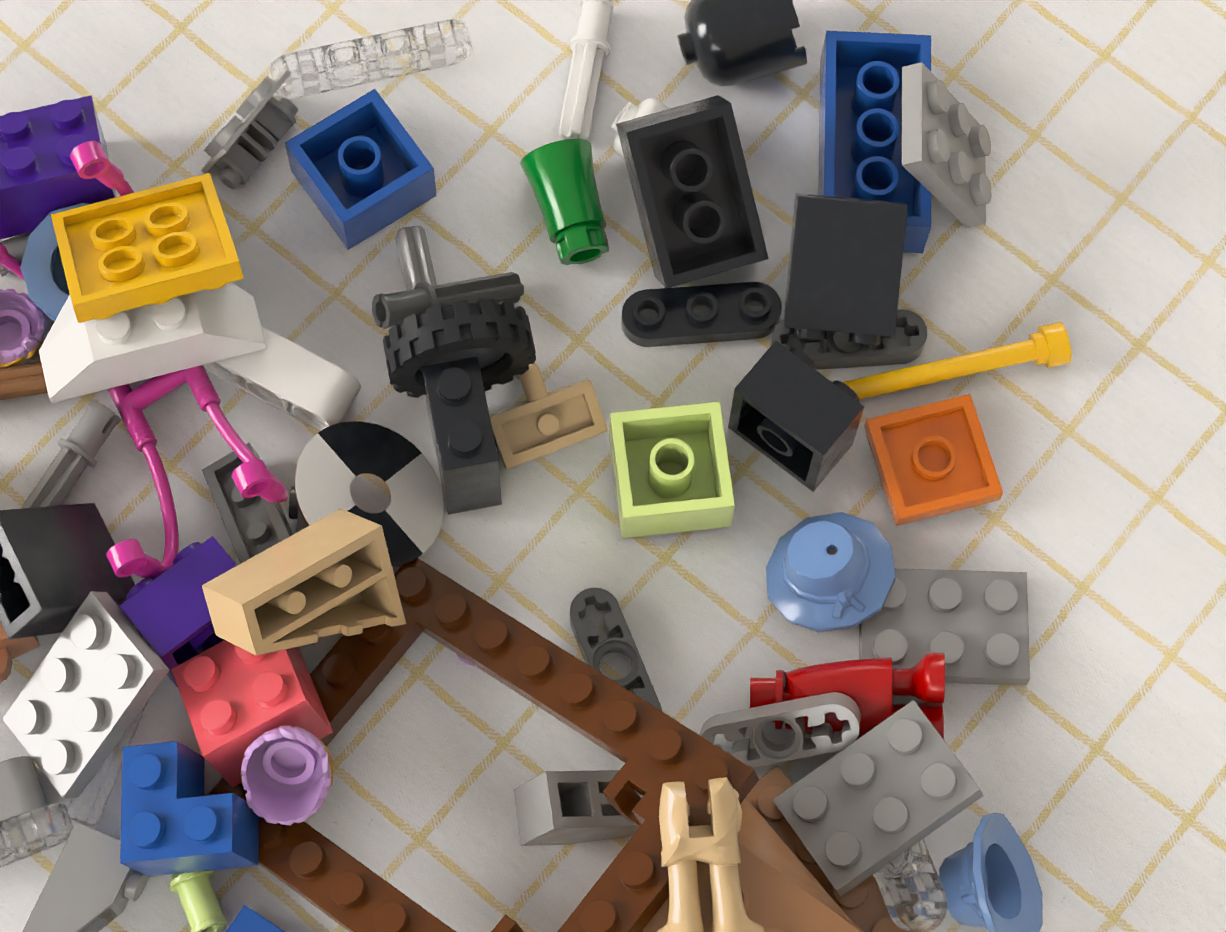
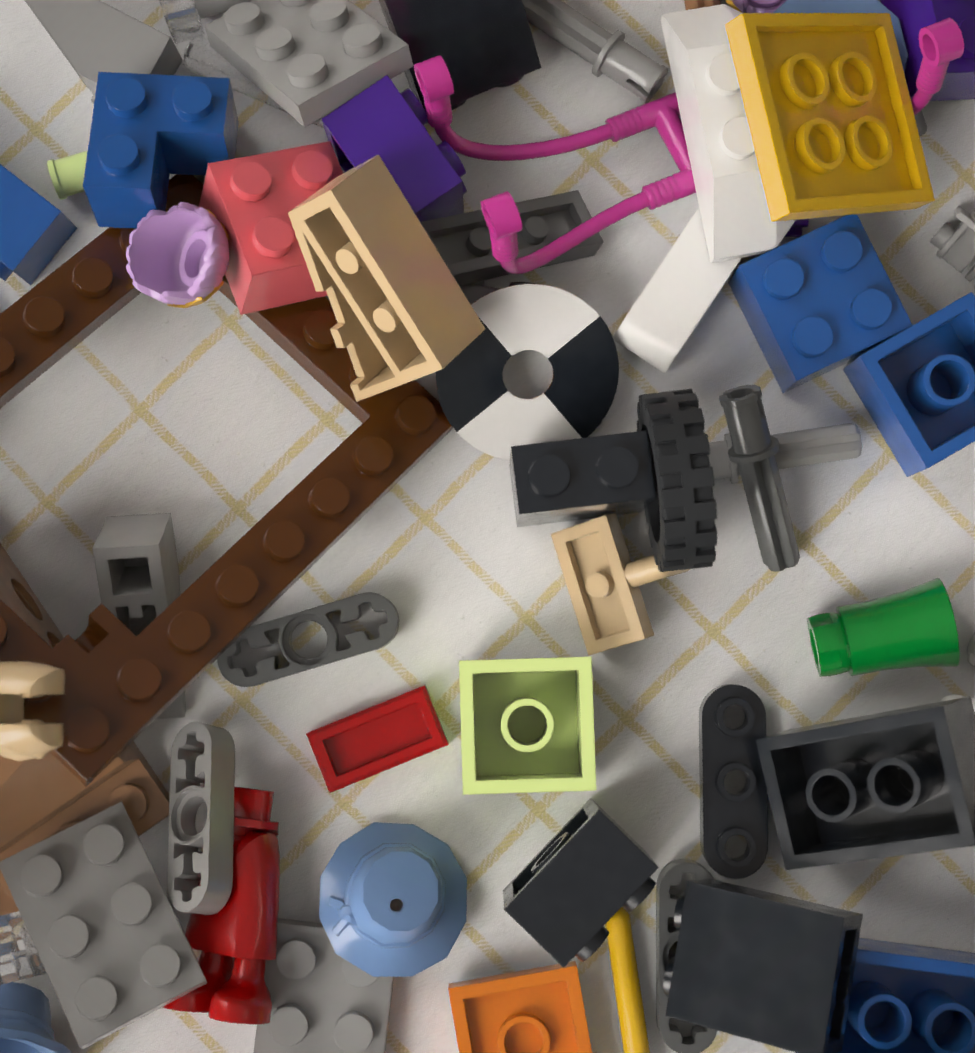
camera: 100 degrees right, 15 degrees up
(298, 266) = (818, 301): none -> blue brick
(695, 602) = (377, 738): none -> red tile

